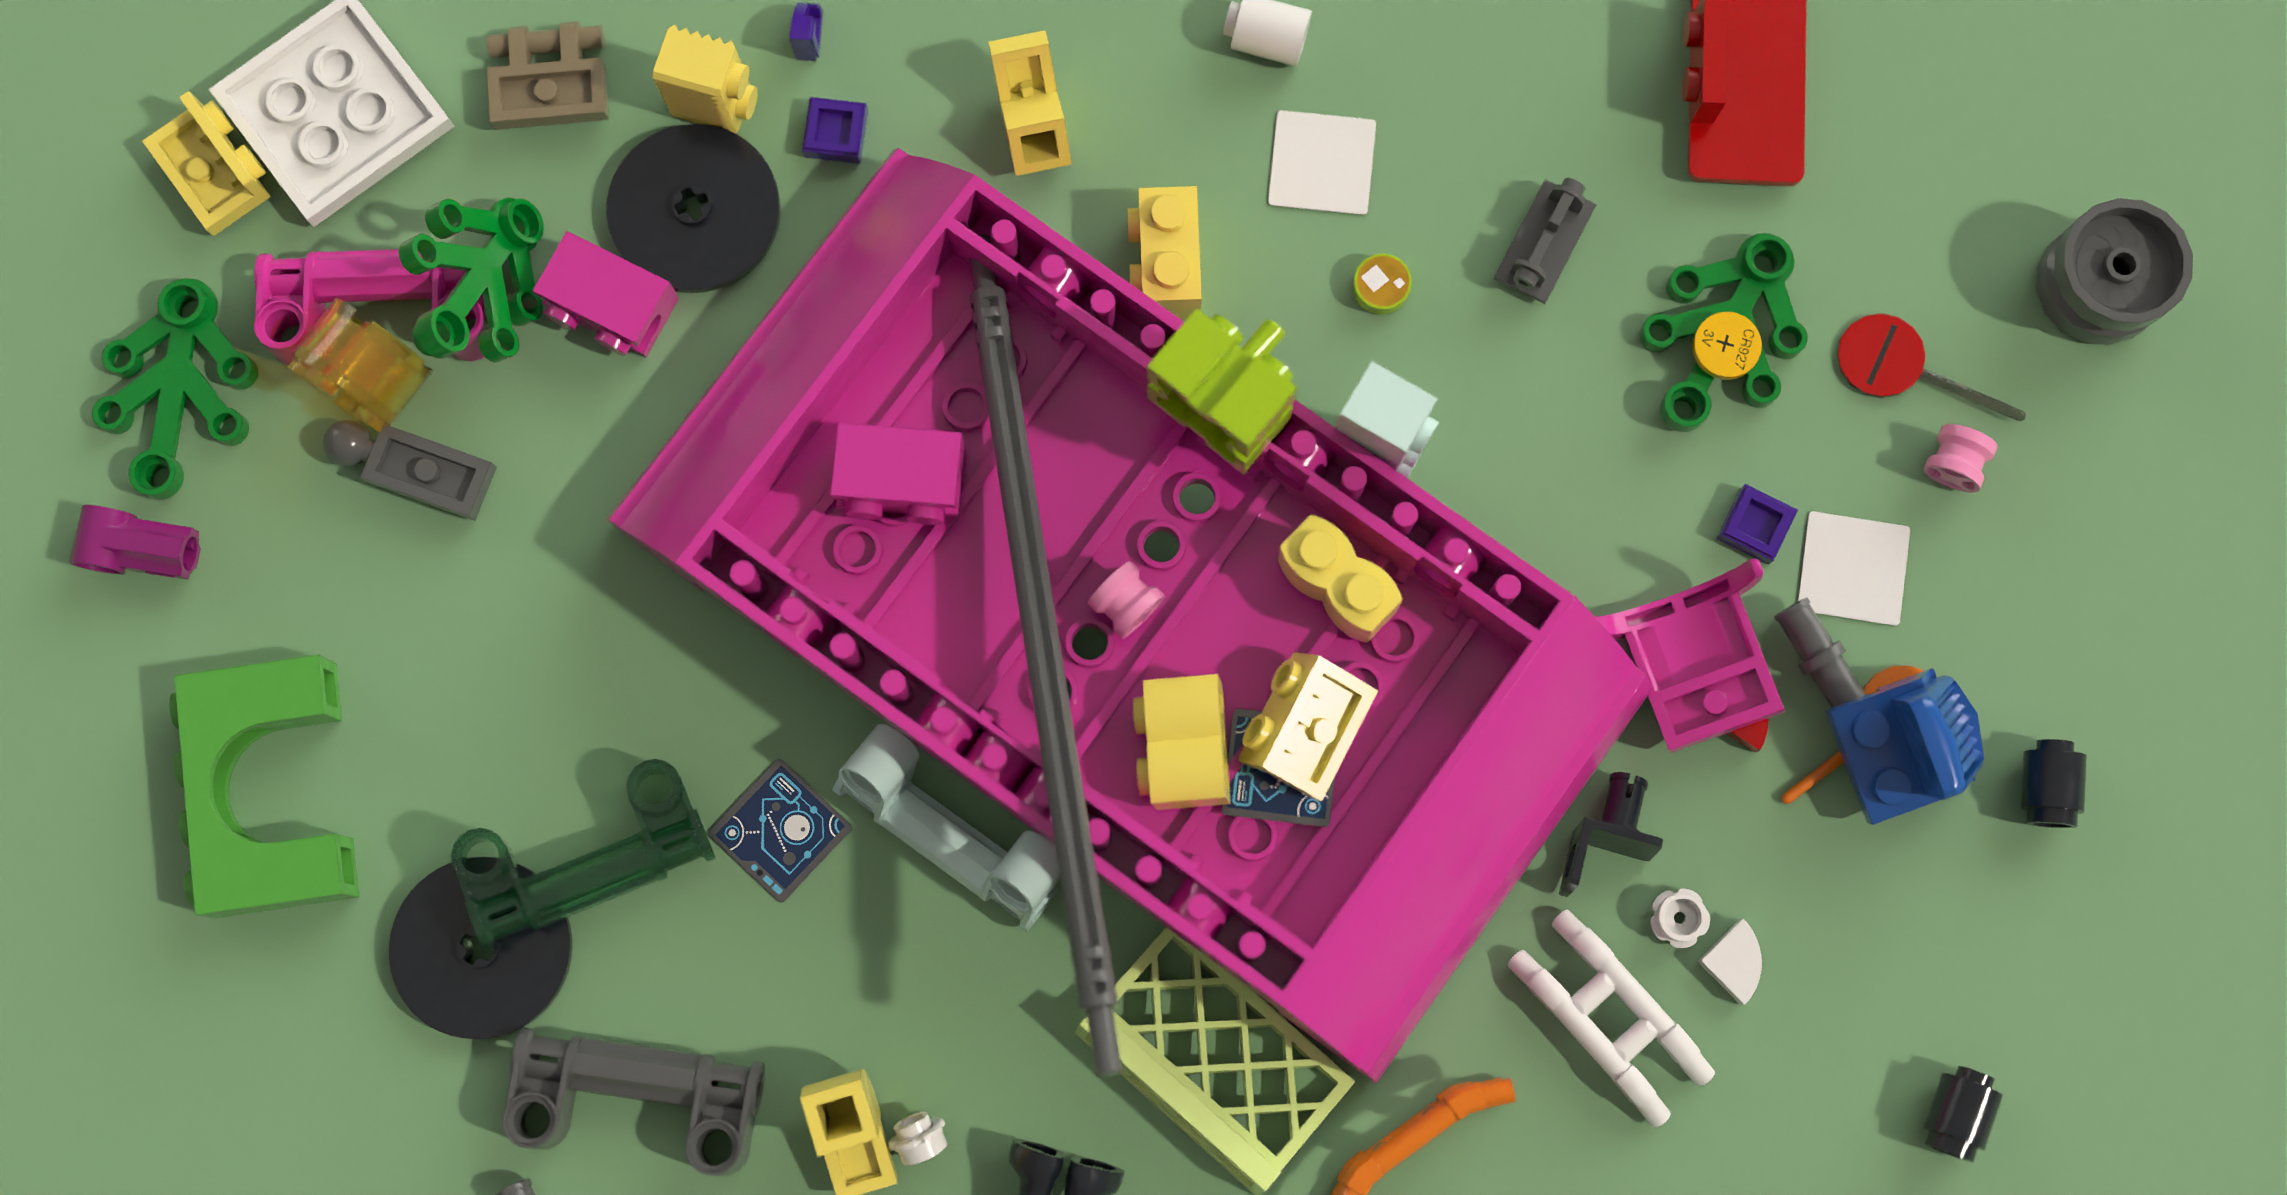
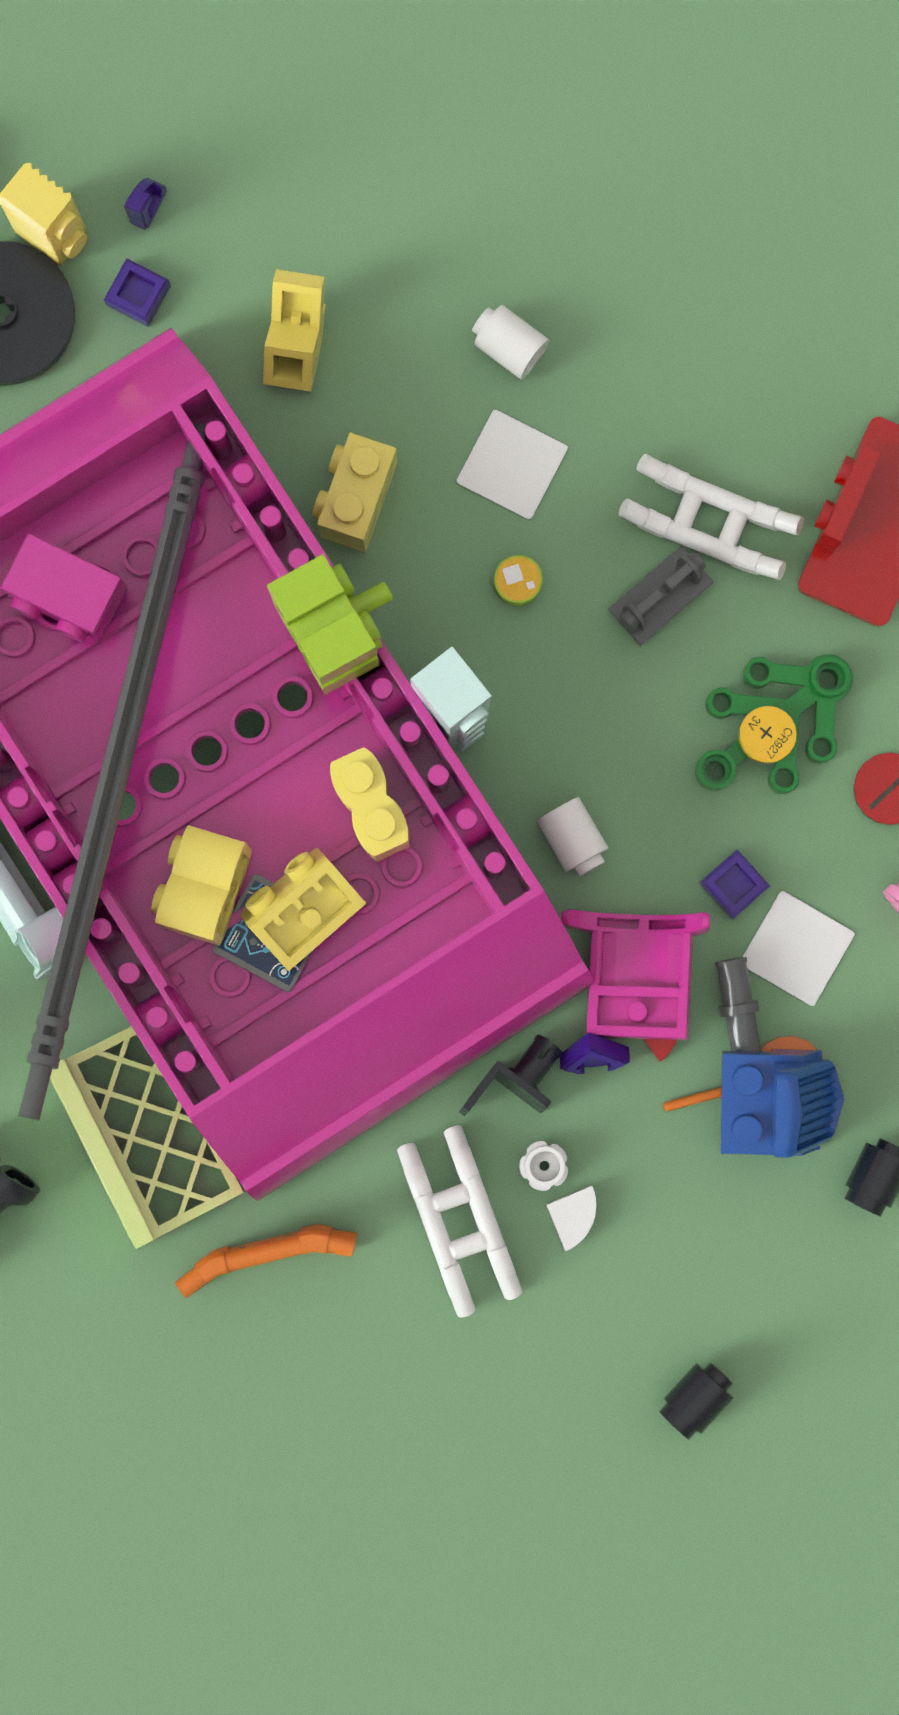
camera: 20 degrees right, 5 degrees up
(1126, 599) = (200, 757): bright pink wheel -> none
(1562, 539) = (573, 837): none -> white brick
(1591, 116) = (695, 493): none -> white piece
(1682, 768) = (594, 1052): none -> dark purple tile

